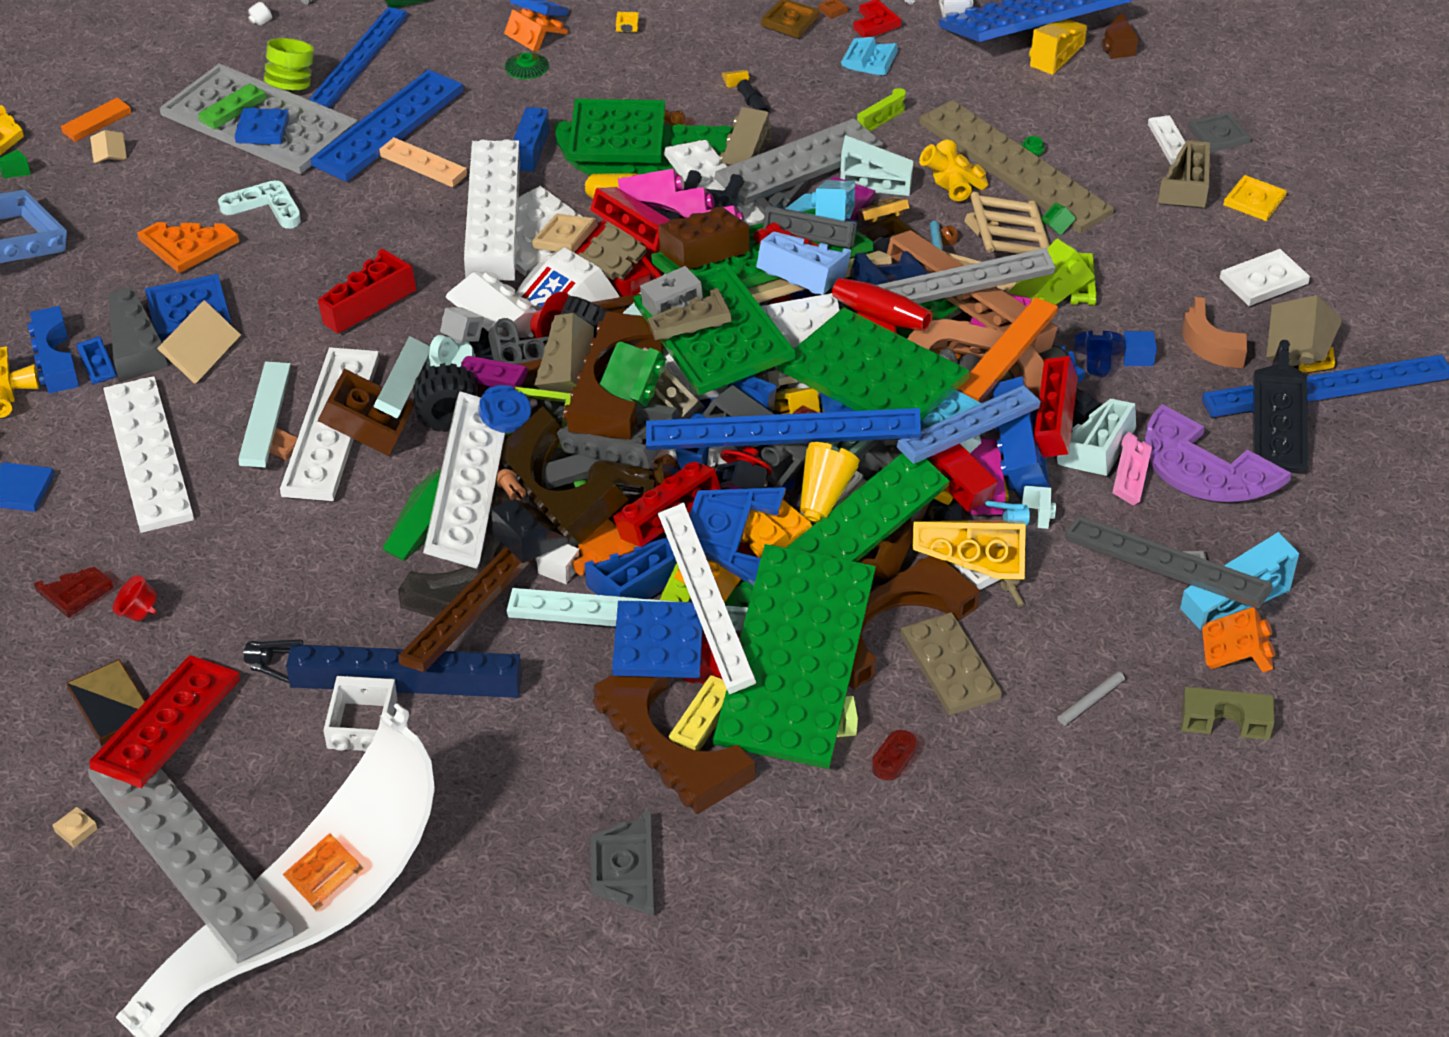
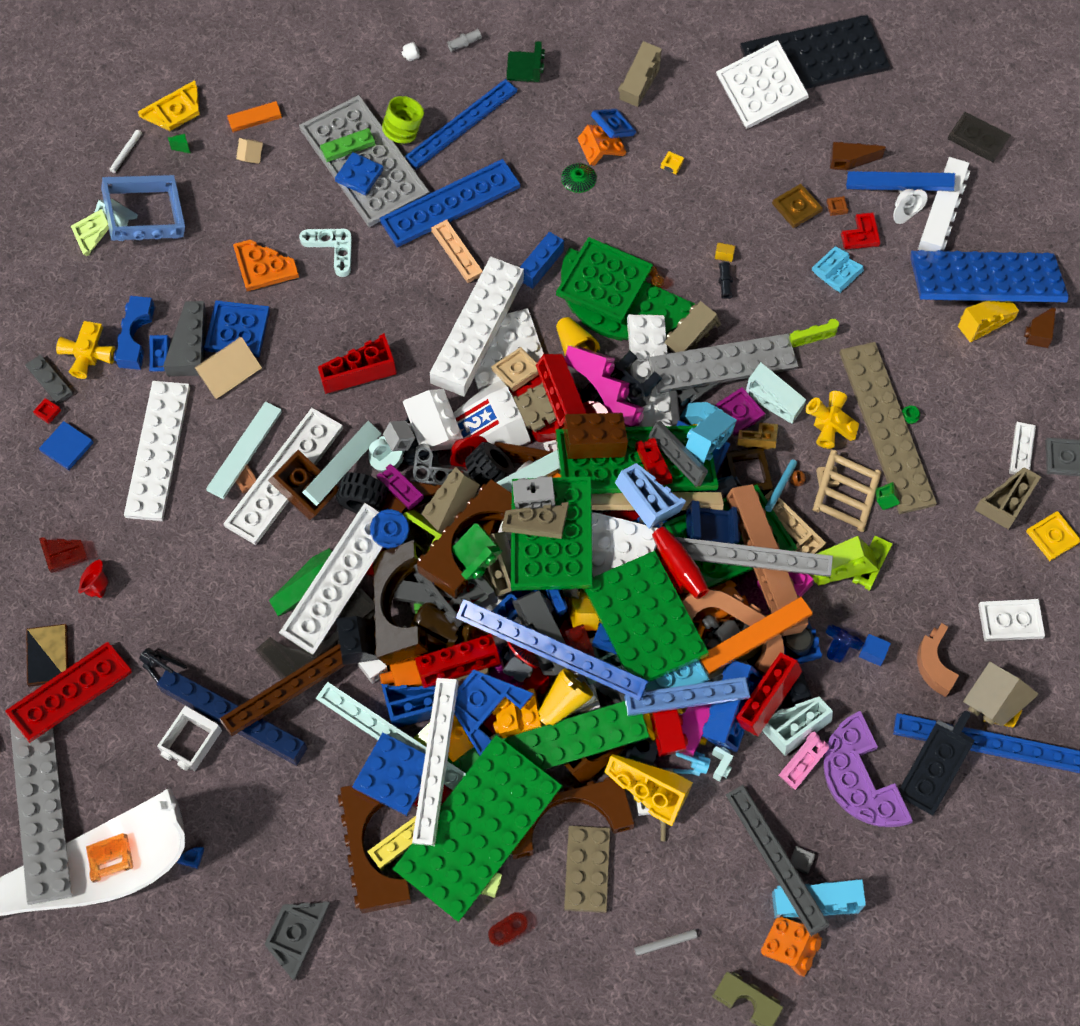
camera: 25 degrees right, 20 degrees up
(434, 840) = (191, 857): none -> blue tile
(507, 480) = (366, 593): nougat pin -> none

